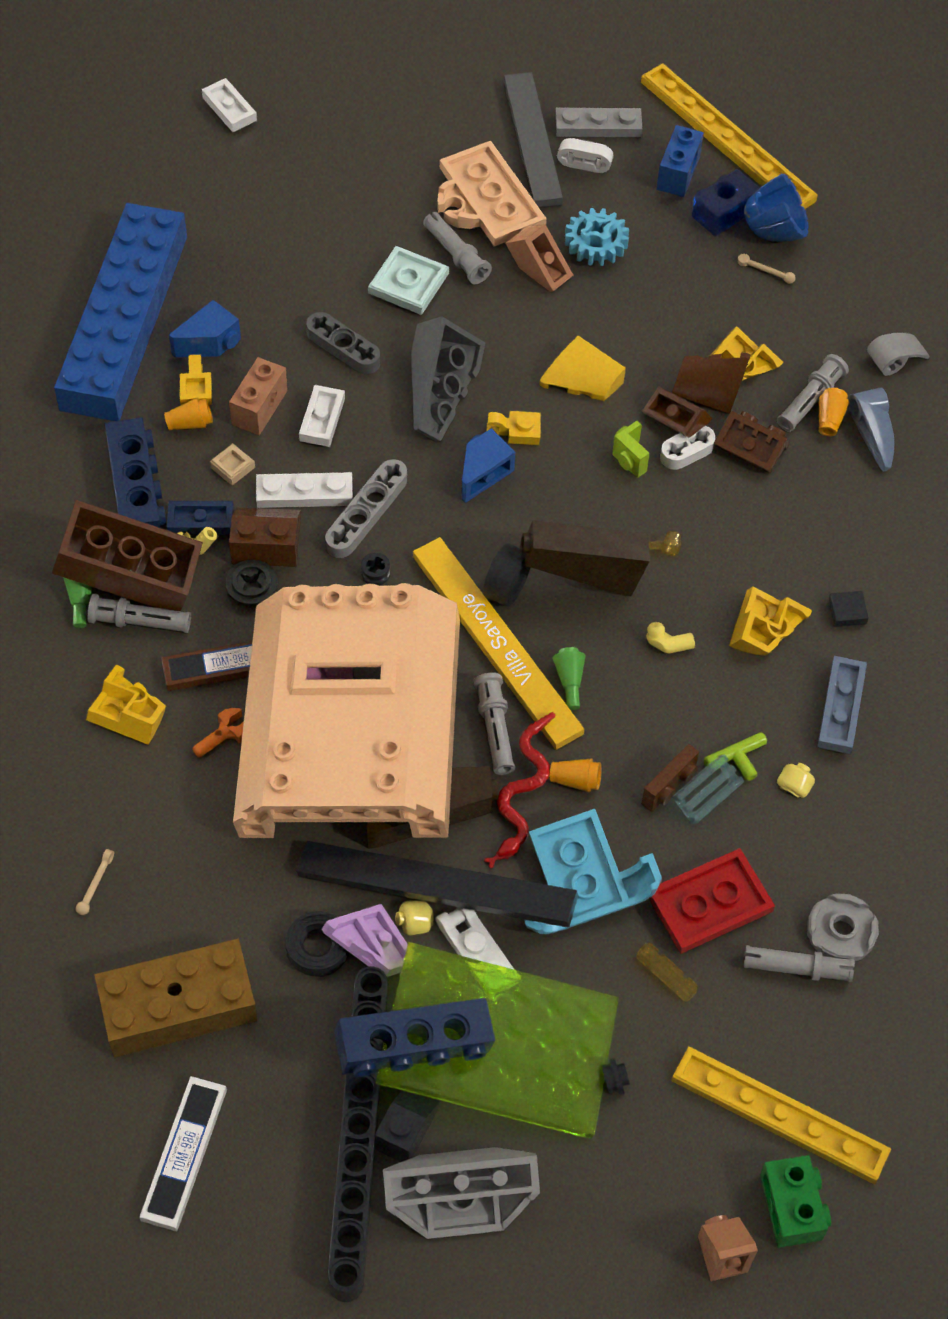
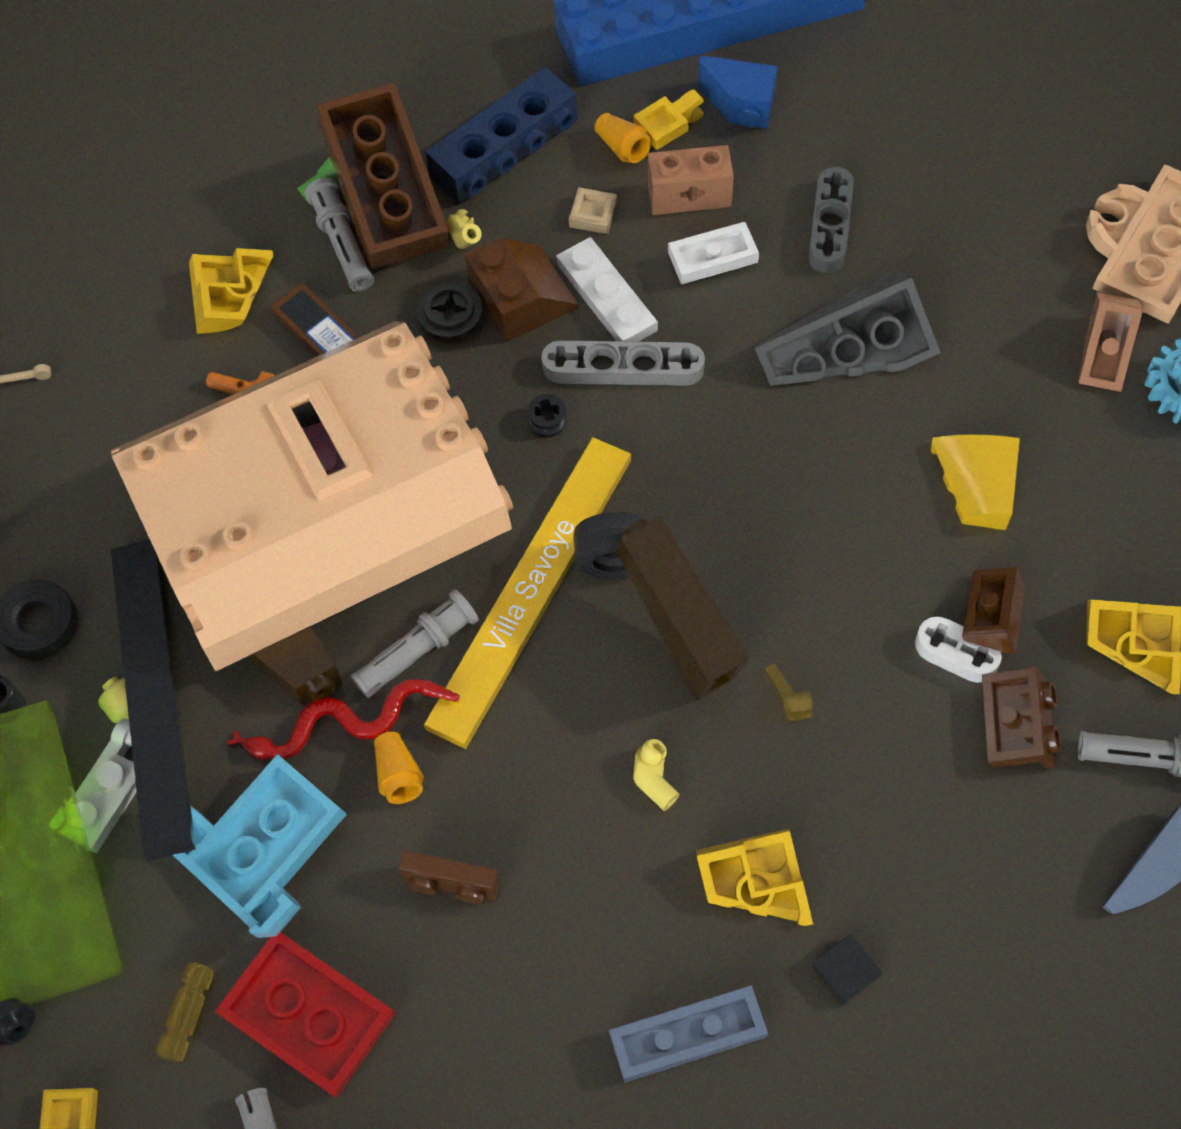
camera: 65 degrees right, 5 degrees up
(196, 515) = (497, 213): dark blue plate -> none
(370, 938) = (57, 664): lavender wing -> none
(408, 280) = (968, 231): light aqua plate -> none
(463, 254) = (1049, 263): light grey pin -> none
(486, 463) = (759, 441): blue slope -> none
(519, 427) = (846, 454): yellow plate -> none
(570, 666) = (536, 685): bright green cone -> none
(628, 450) = (904, 571): lime bracket -> none
(711, 380) = (1069, 620): reddish brown slope -> none
(728, 773) = (456, 947): clear light blue tile -> none
(737, 753) = (540, 939): lime piece -> none
(796, 780) = (547, 1033): light yellow piece -> none
(832, 408) = (1144, 791): light orange cone -> none

